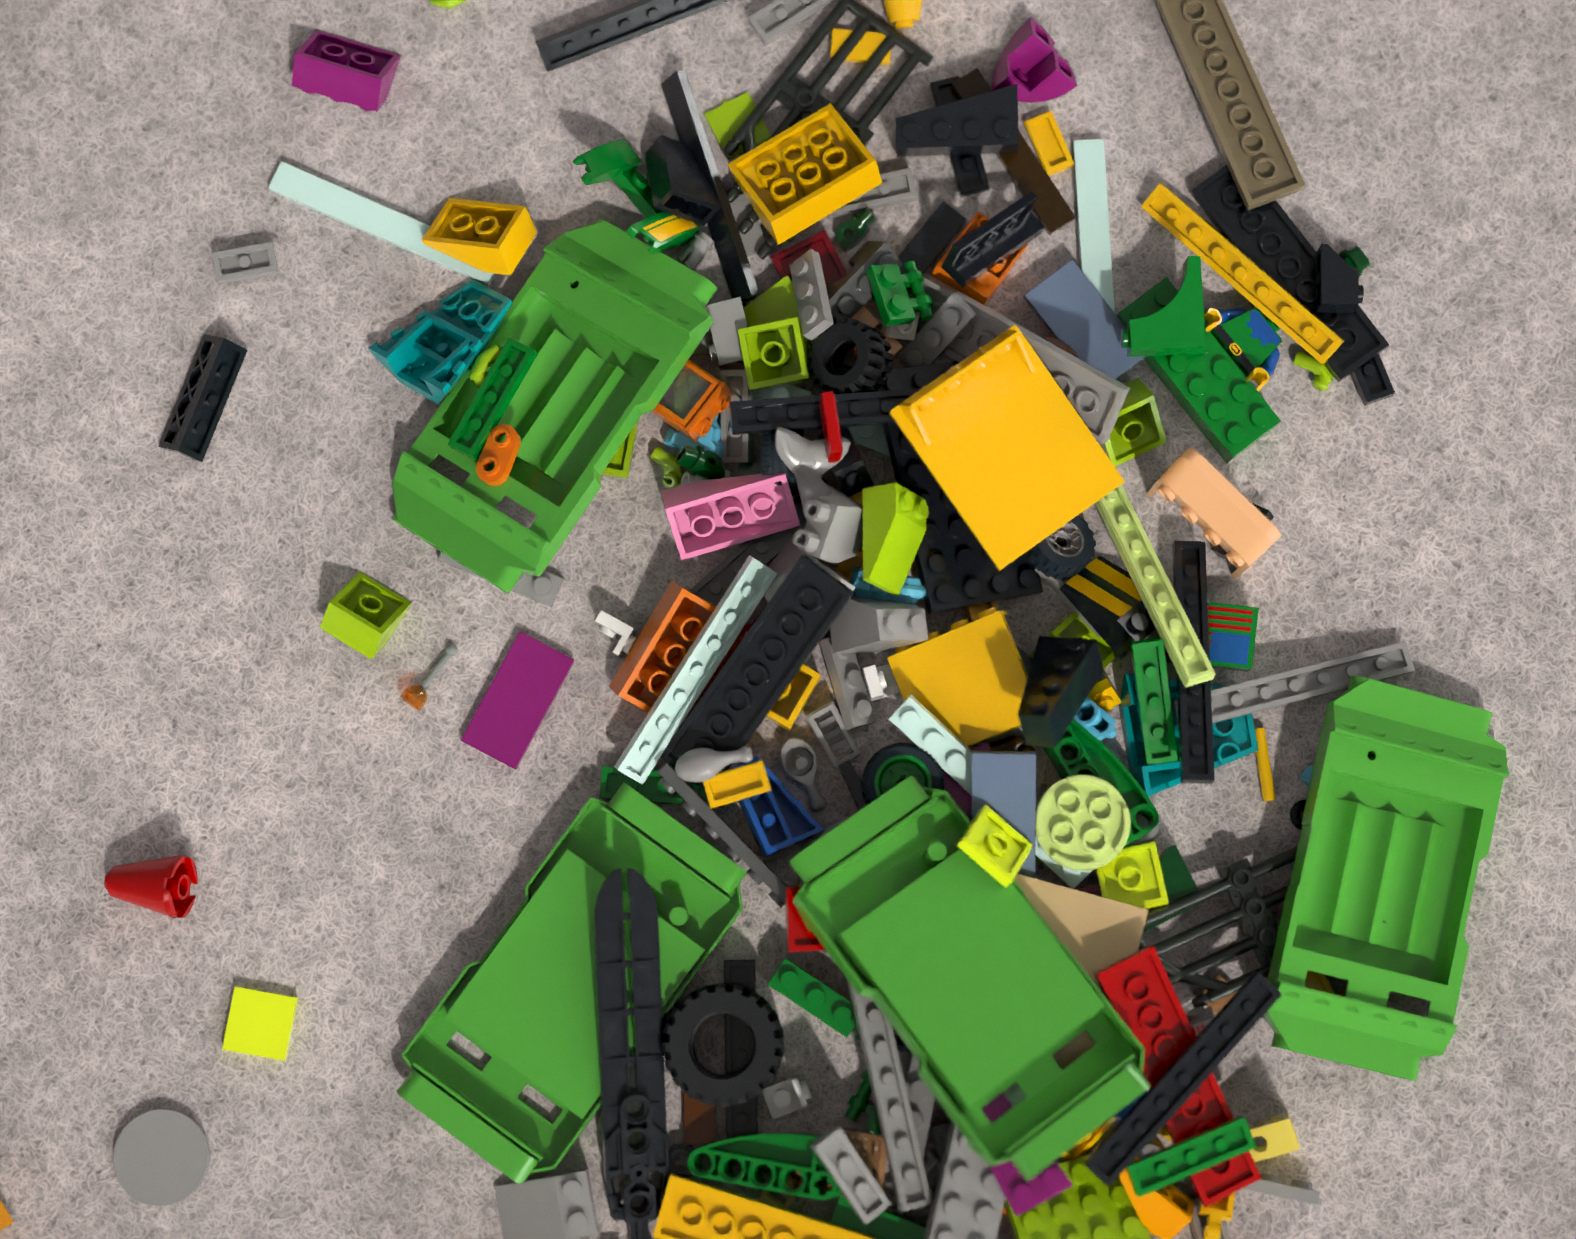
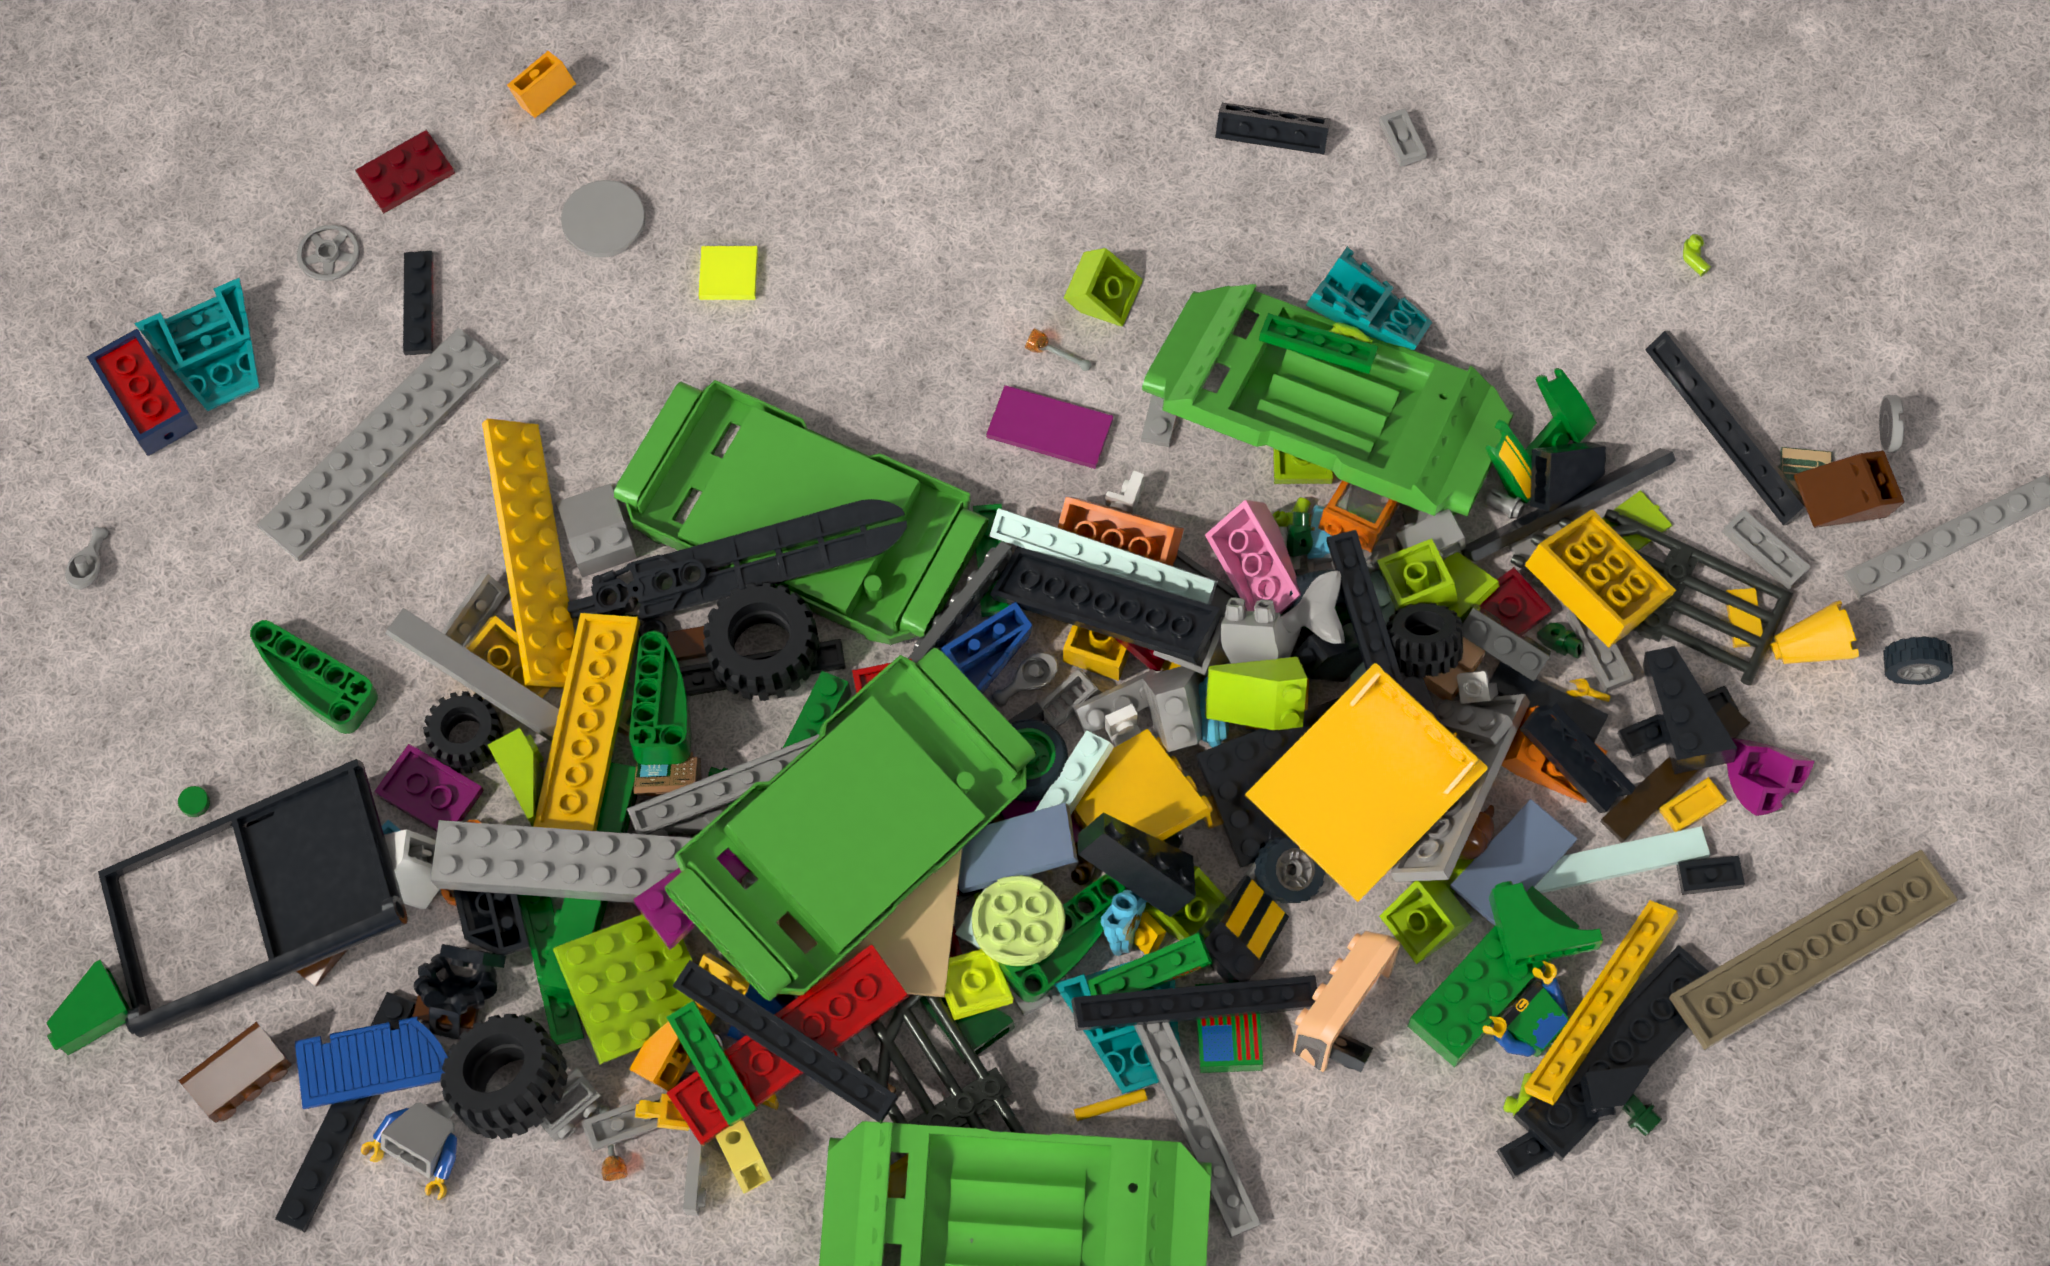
camera: 85 degrees right, 15 degrees down
(155, 884) = (835, 169): red cone -> none
(344, 70) = (1601, 182): magenta slope -> none
(365, 216) = (1466, 243): light aqua tile -> none
(482, 234) = (1474, 318): yellow slope -> none
(501, 454) = (1267, 356): orange plate -> none
(705, 763) = (1016, 577): light grey piece -> none
(737, 784) = (1001, 609): yellow tile -> none
(786, 1097) = (723, 713): white bracket -> none
(811, 294) = (1481, 596): light grey plate -> none
(830, 427) = (1349, 617): red tile -> none
(850, 1174) = (654, 754): light grey plate -> none
(891, 293) = (1495, 666): green plate -> none
(912, 218) = (1584, 689): none -> yellow hand
(995, 845) = (980, 834): neon yellow tile -> none
(1124, 143) = (1710, 875): none -> black plate
(1155, 588) = (1270, 952): yellowish green tile -> none

